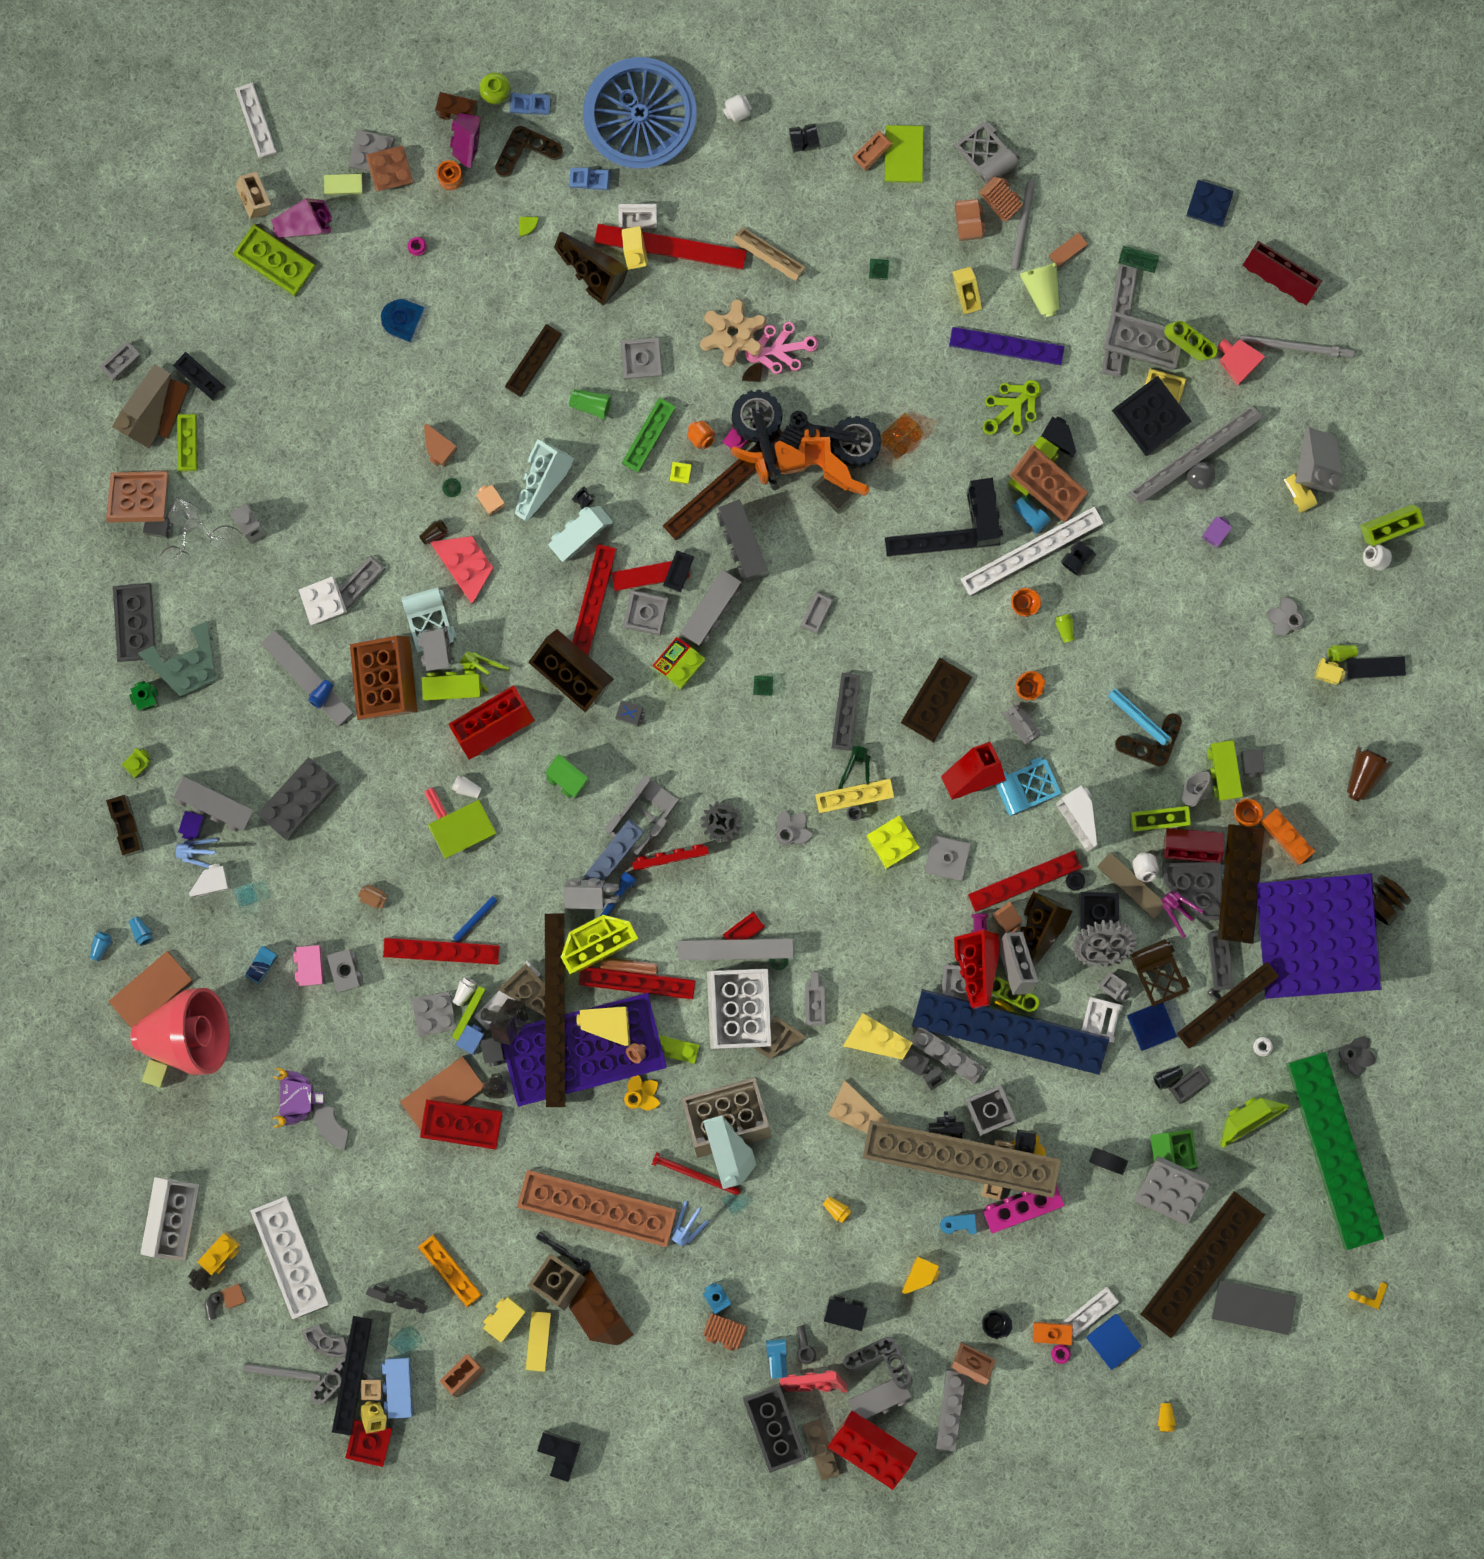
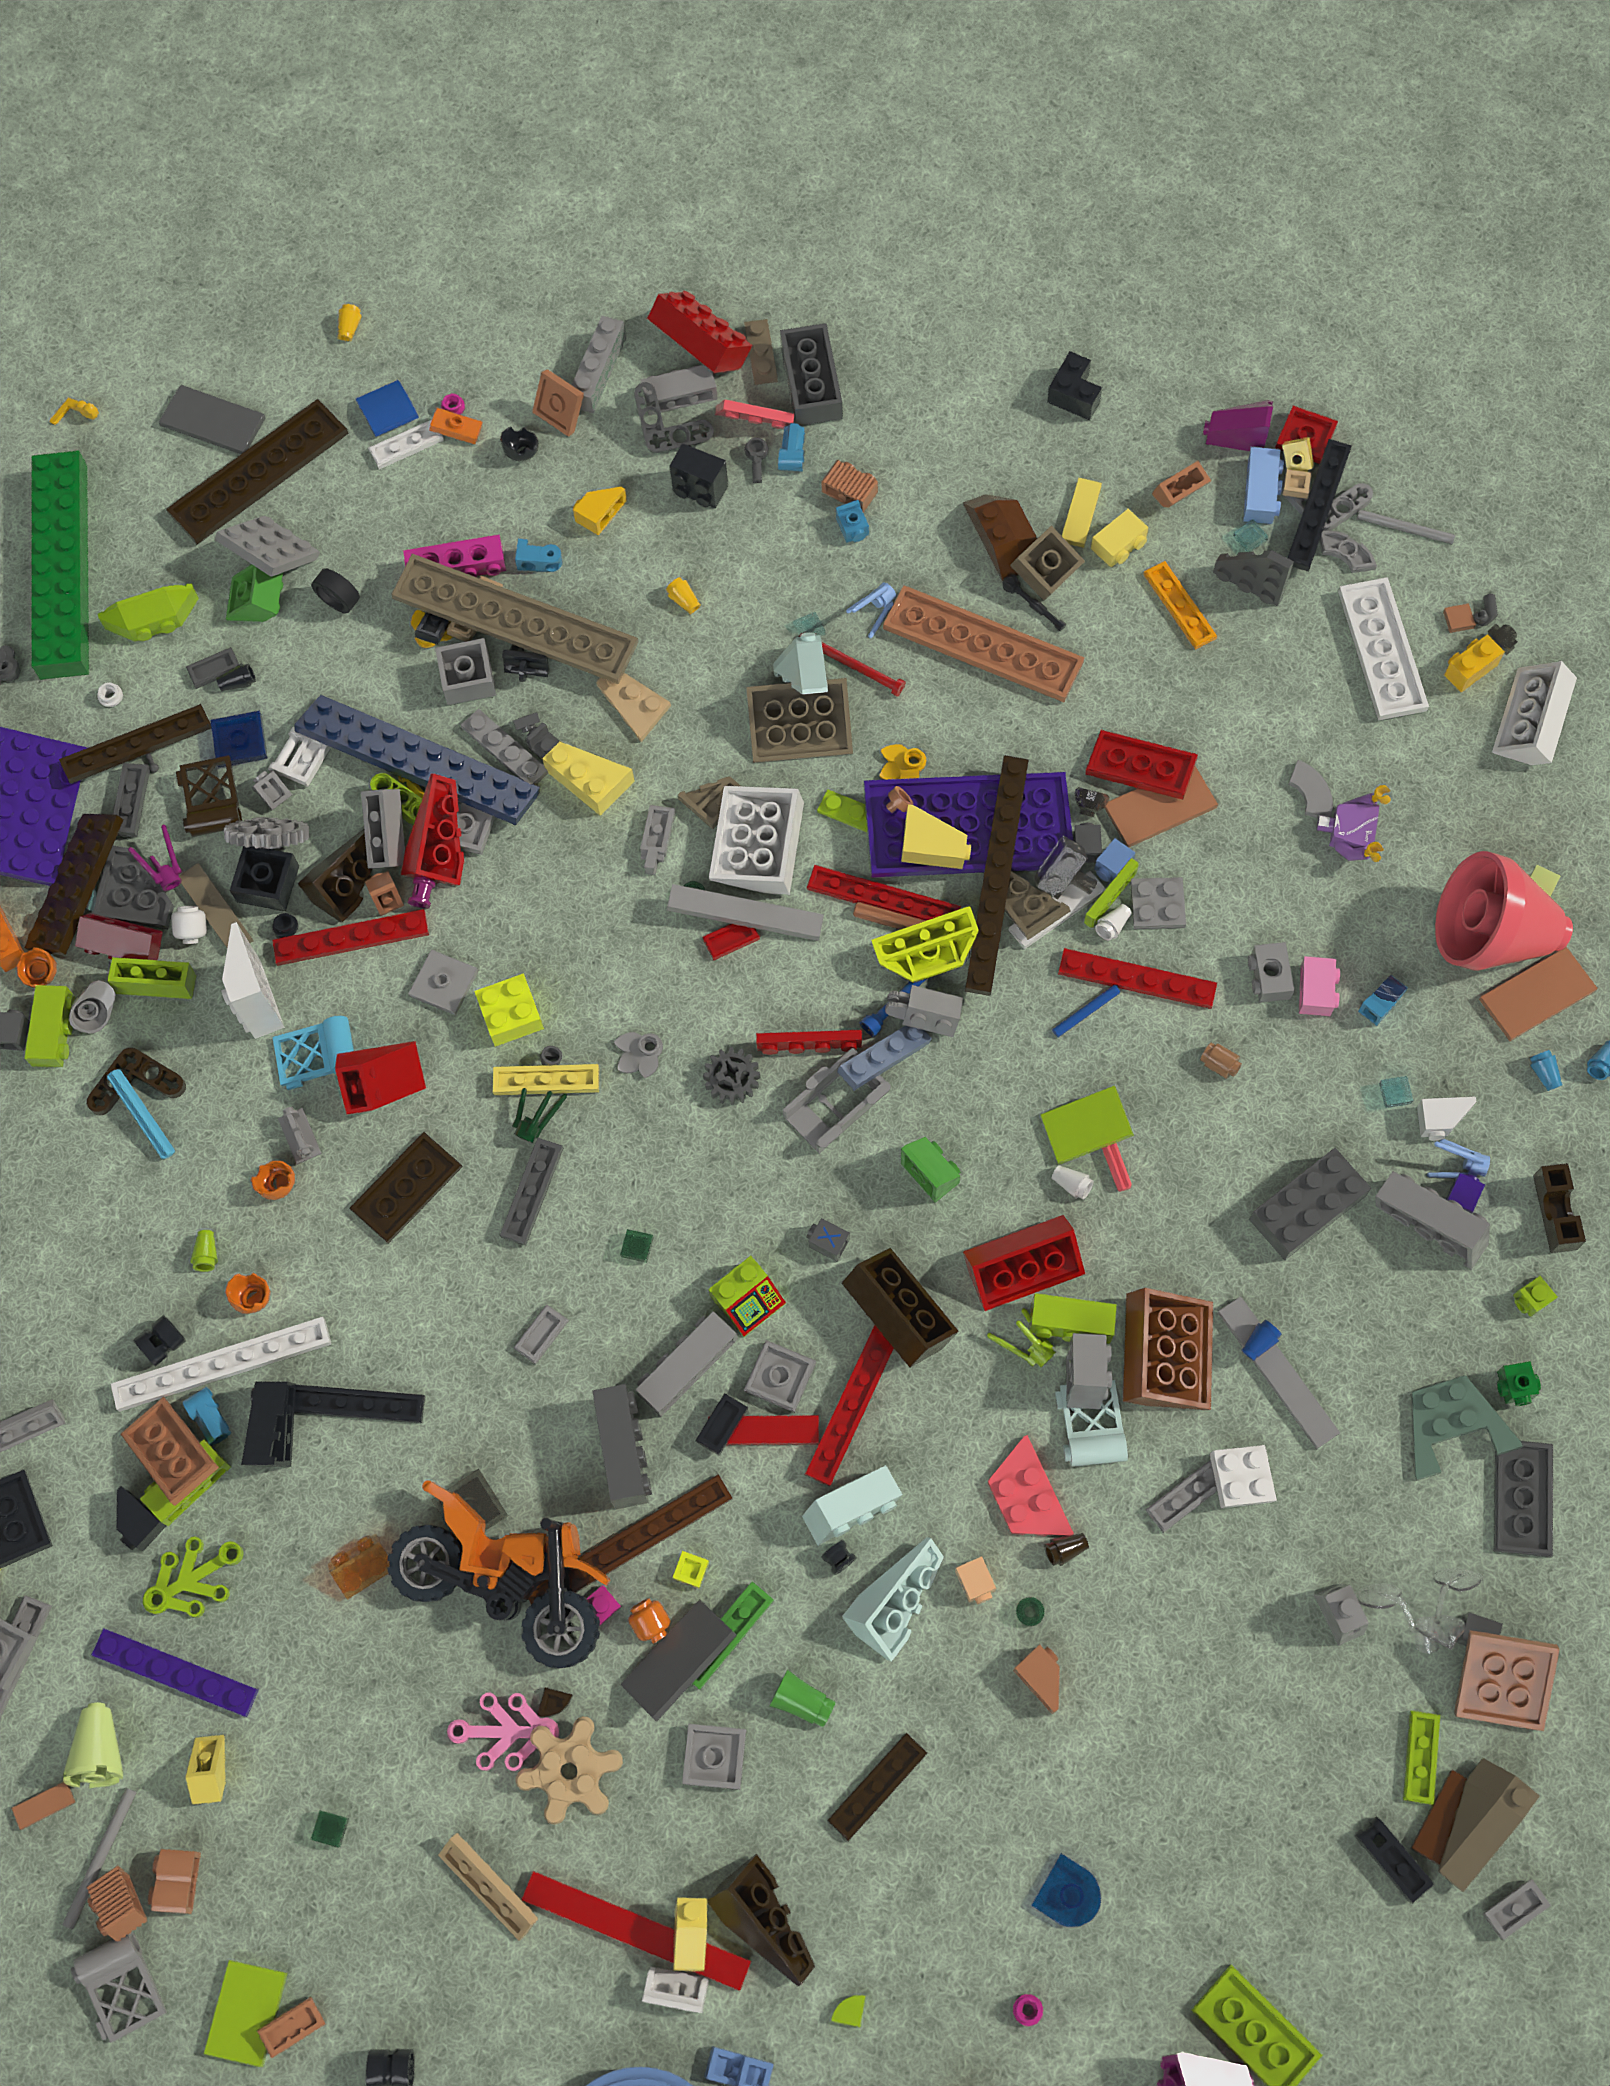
camera: 170 degrees left, 15 degrees down
(421, 1439) = (1240, 426): none -> magenta slope
(676, 412) = (678, 1660): none -> dark grey tile

